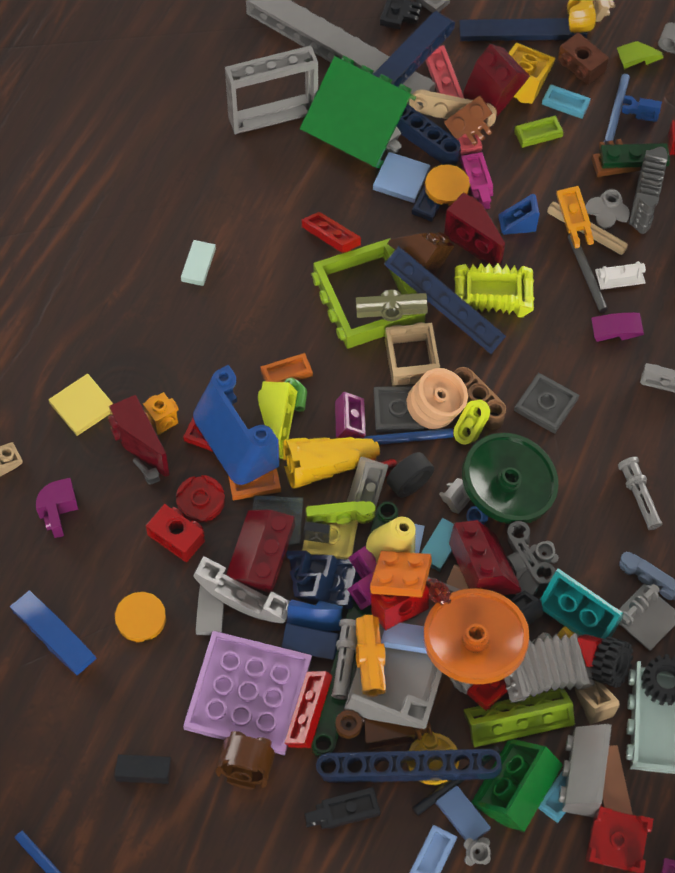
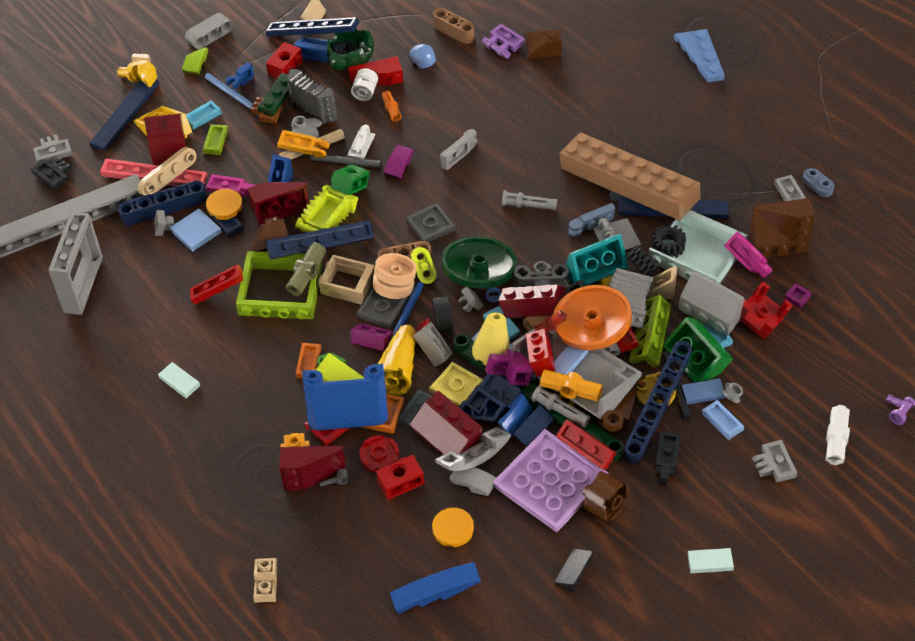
camera: 60 degrees left, 10 degrees down
(53, 500) = (328, 549): magenta brick -> none
(81, 404) = (251, 501): light yellow tile -> none
(317, 532) = (454, 386): black tile -> none
(341, 512) = (448, 366): lime hinge -> none
(356, 110) = (131, 223): green panel -> none
(401, 573) = (525, 338): orange plate -> none
(416, 48) = (110, 184): dark blue beam -> none
(470, 120) = (187, 164): dark orange hinge -> none
(551, 288) = (350, 179): none -> green brick
(583, 58) = (177, 89): copper brick -> none
(588, 646) = (629, 265): red slope -> none

